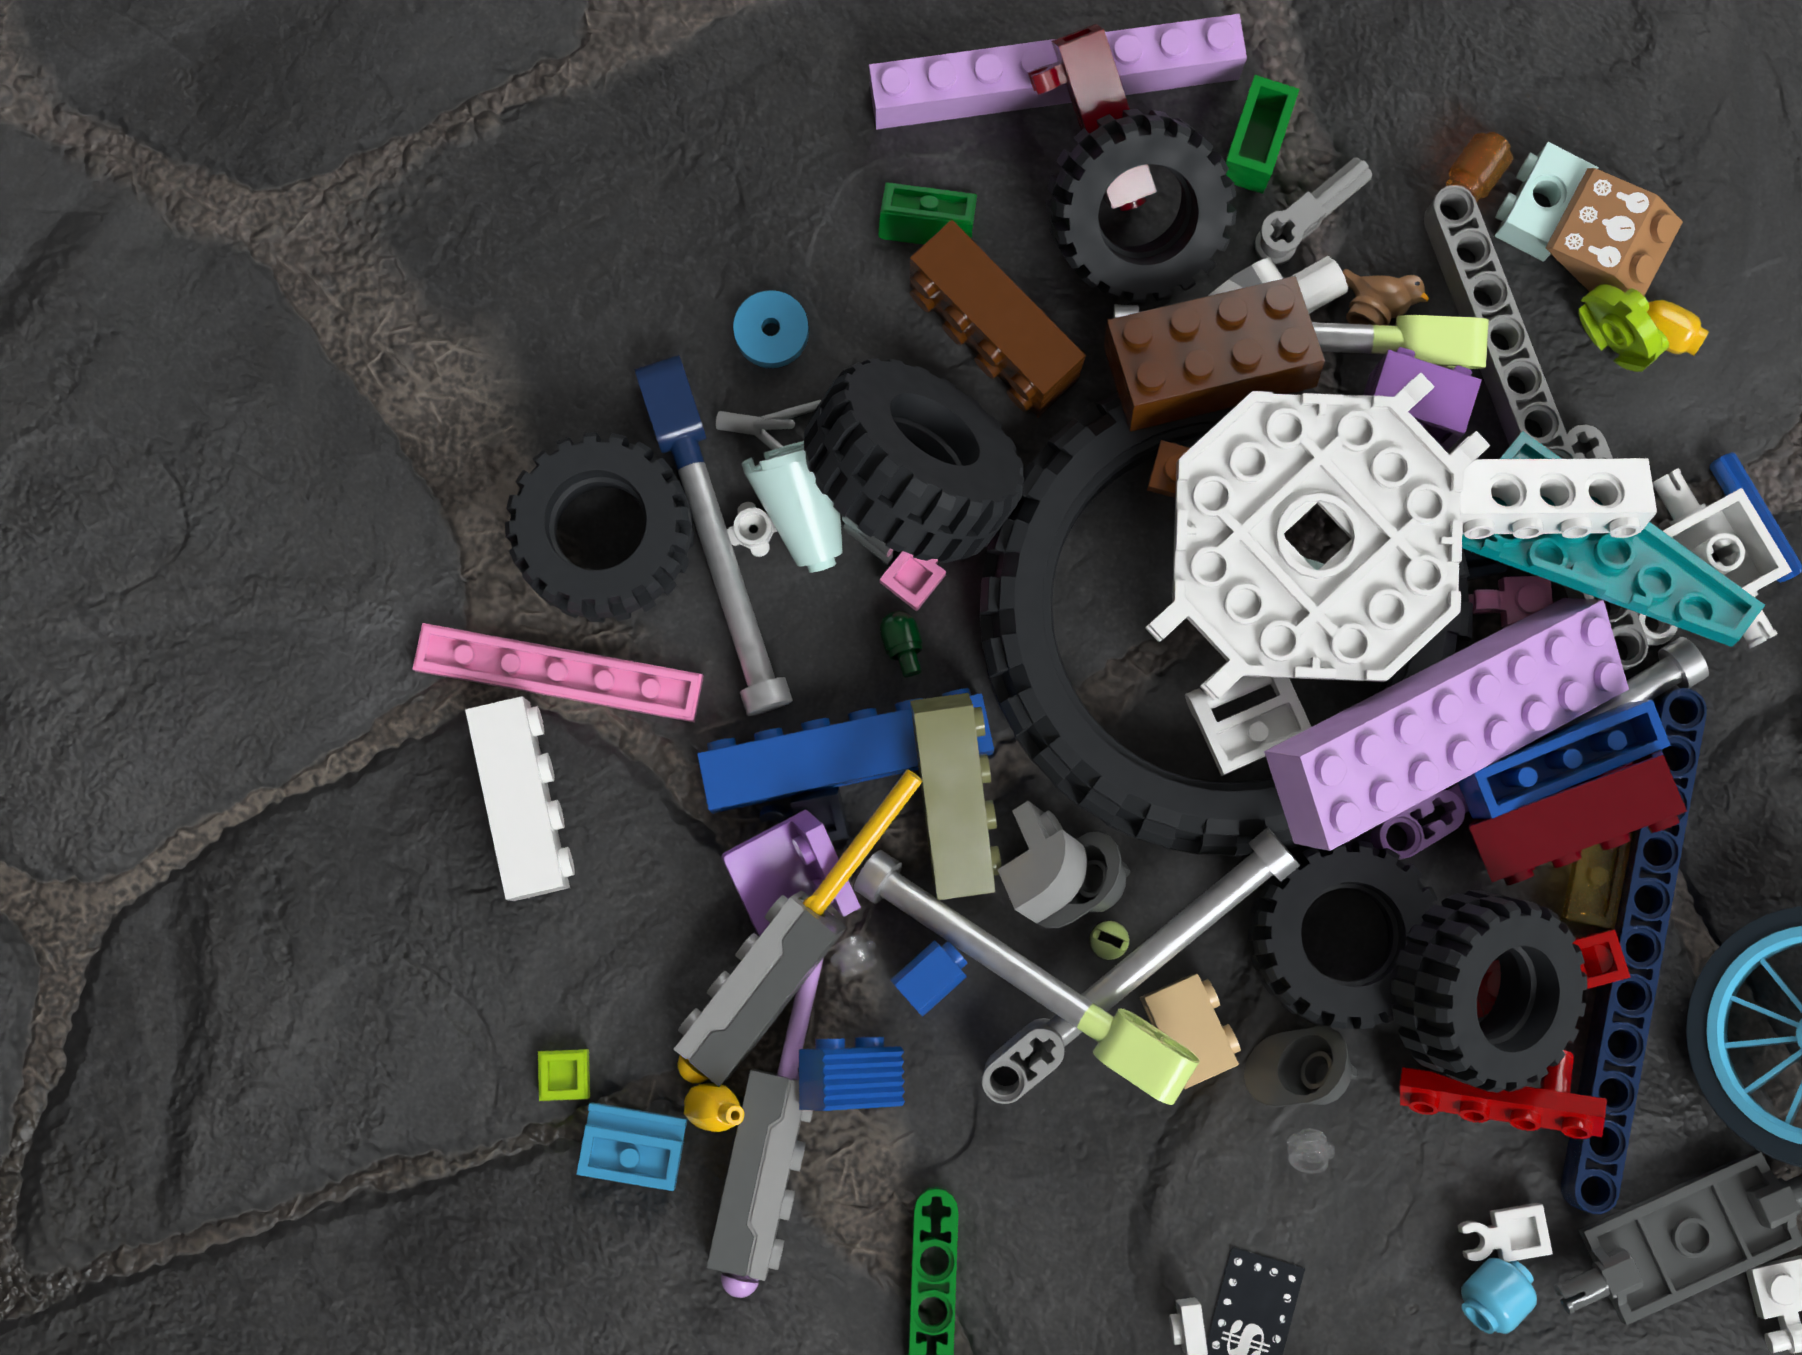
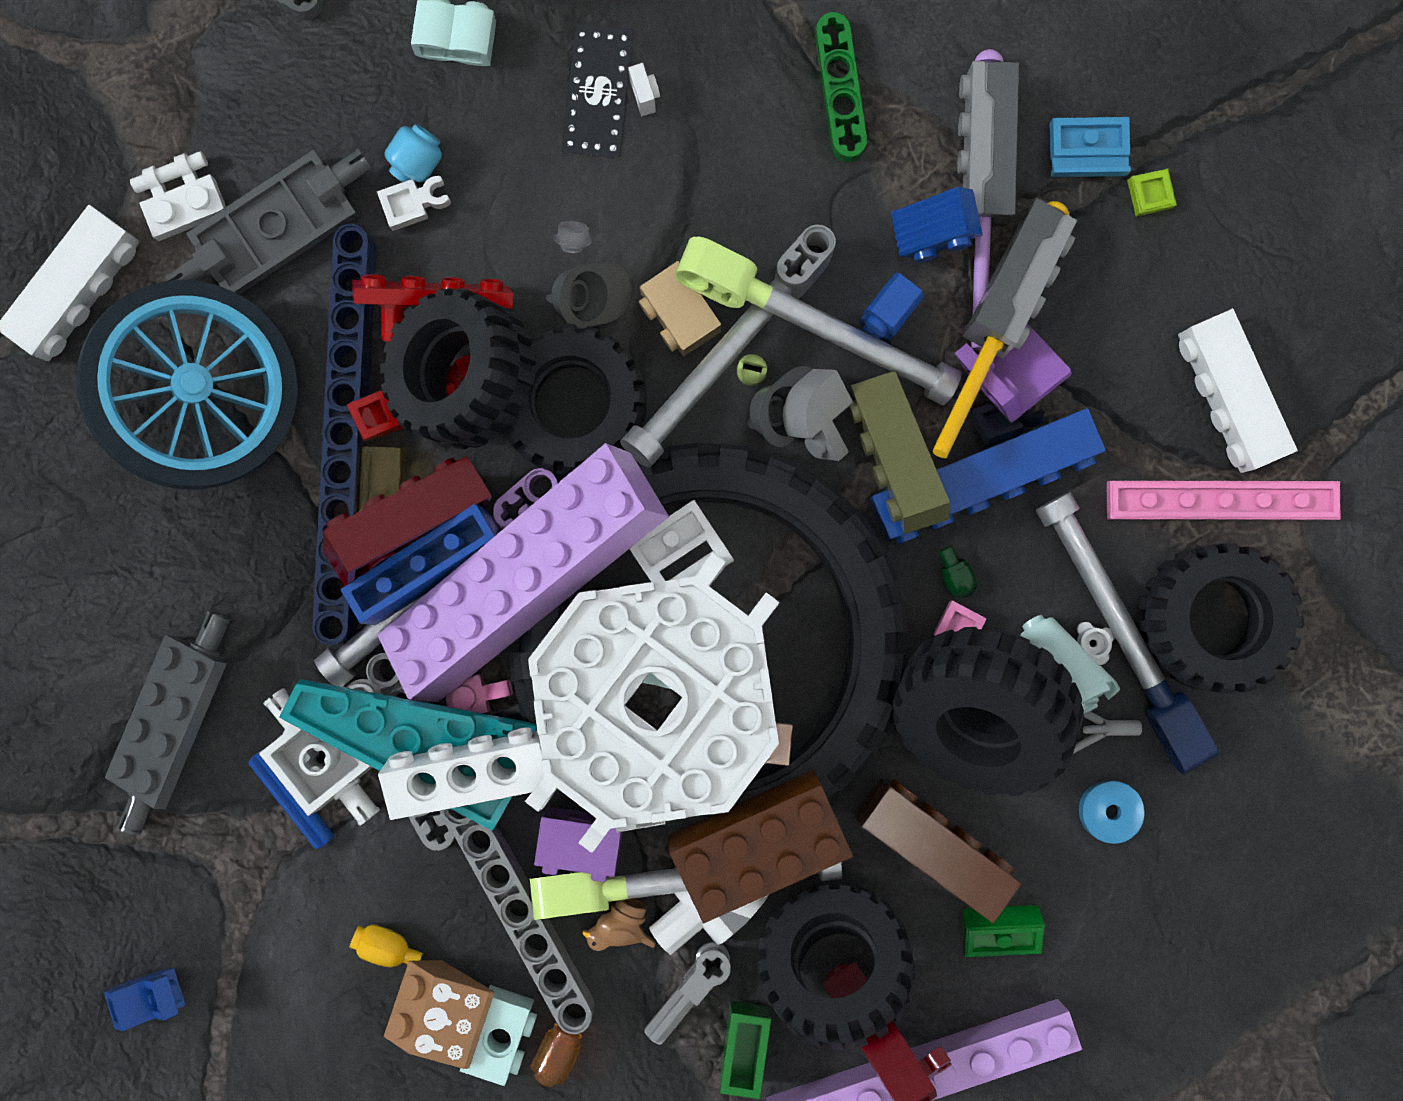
camera: 170 degrees right, 5 degrees up
(713, 1107) = (1037, 182): yellow plant -> none
(854, 956) = (948, 320): clear plate -> none
(1624, 325) = (423, 940): lime plate -> none

